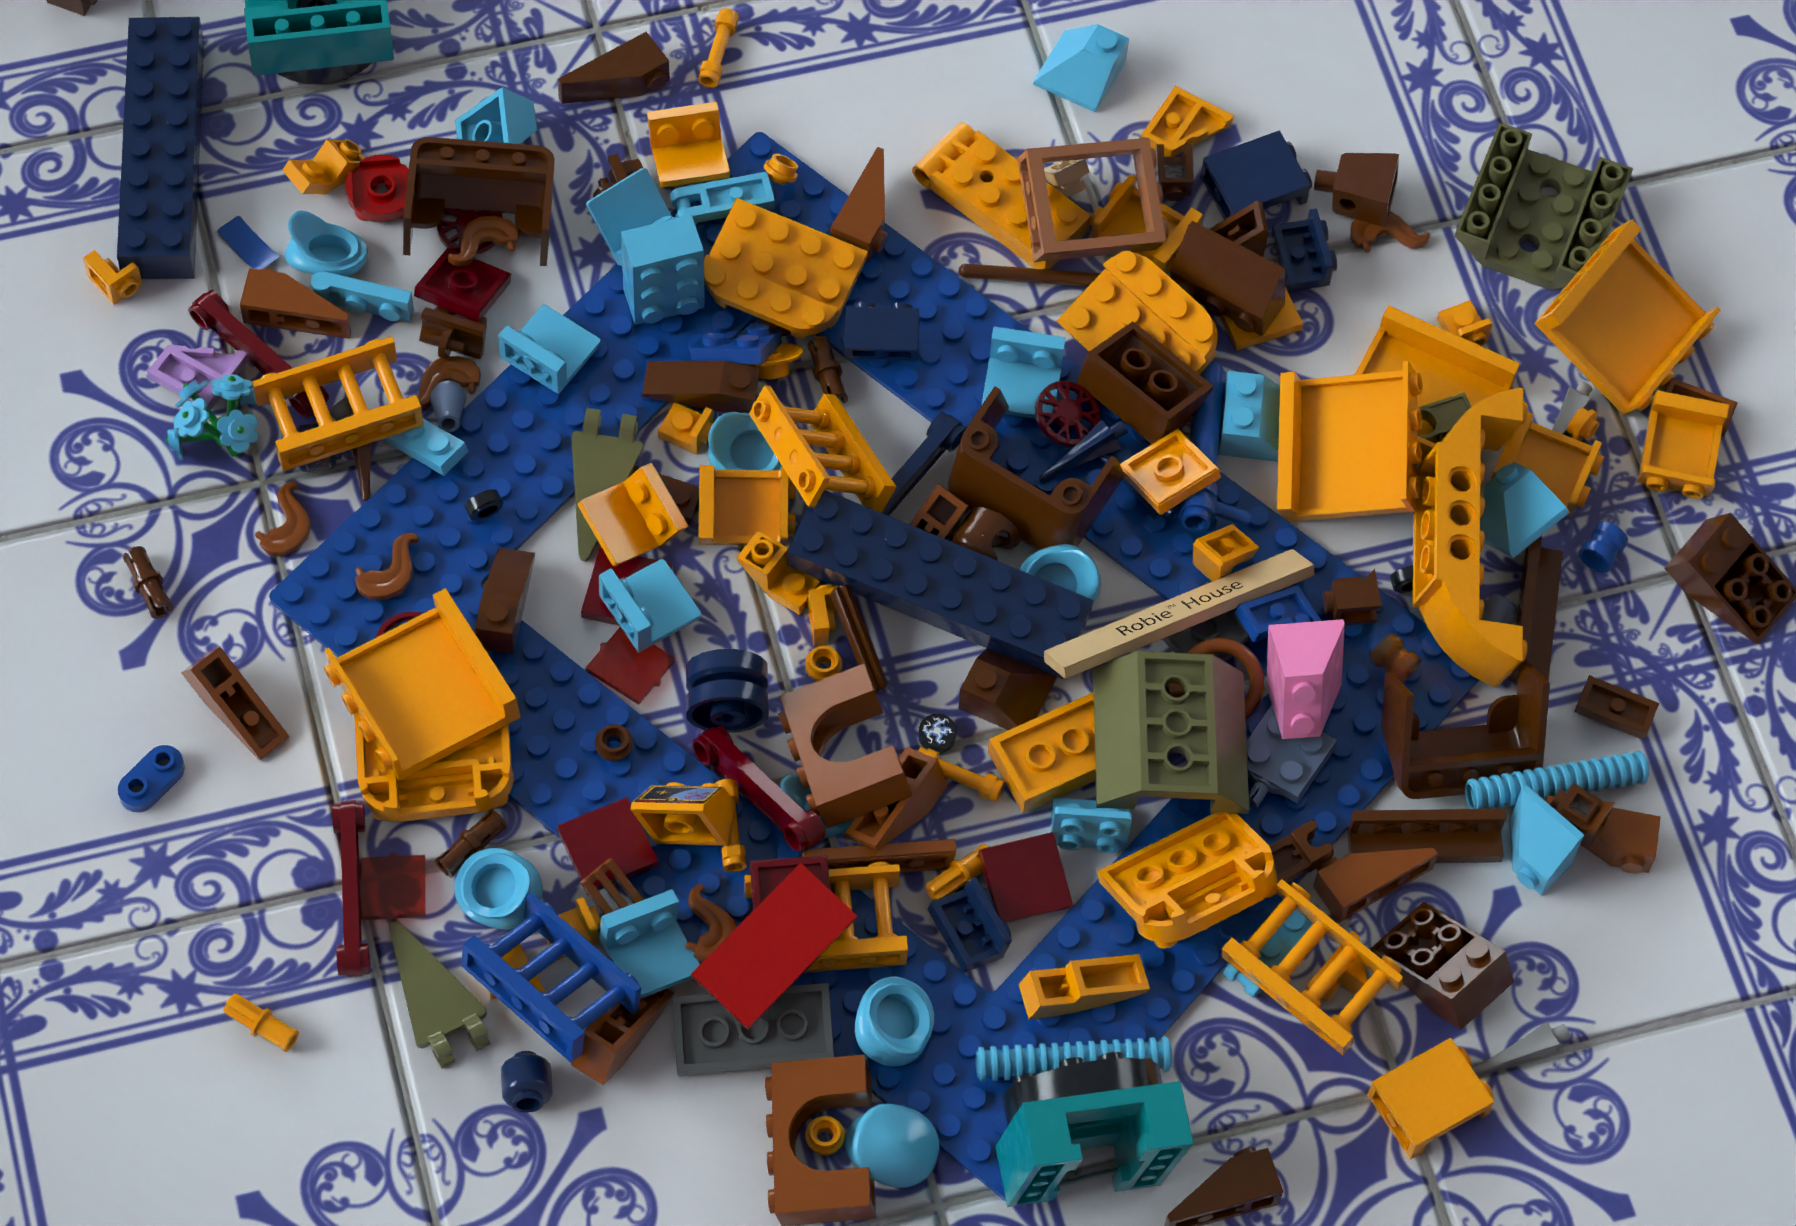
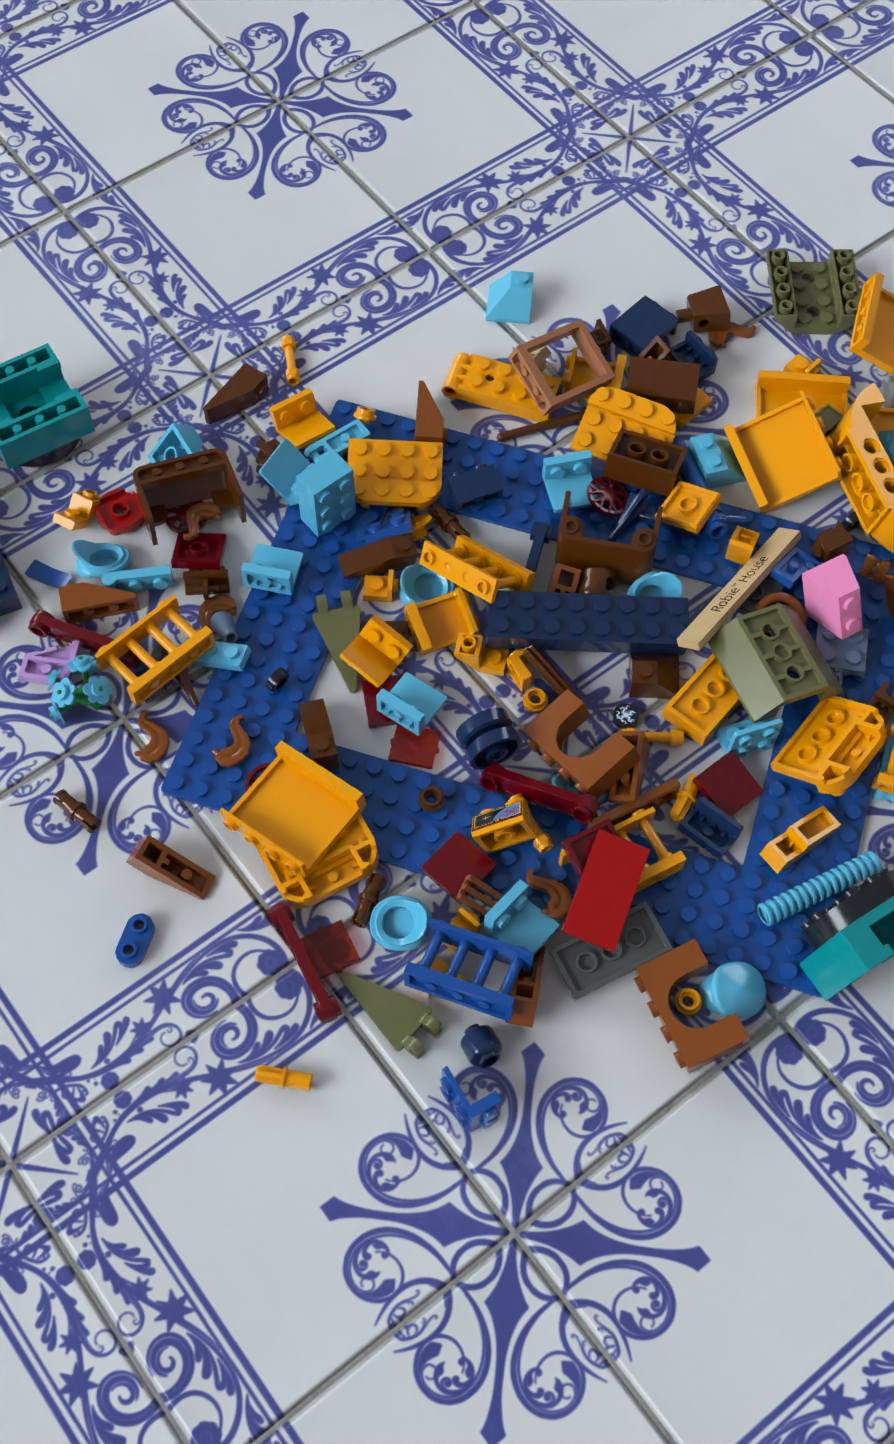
camera: 20 degrees left, 0 degrees up
(480, 1159) = (473, 1116): none -> blue bracket
(894, 1021) = (698, 909): medium azure piece -> none
(1184, 121) = (587, 308): light orange wing -> none

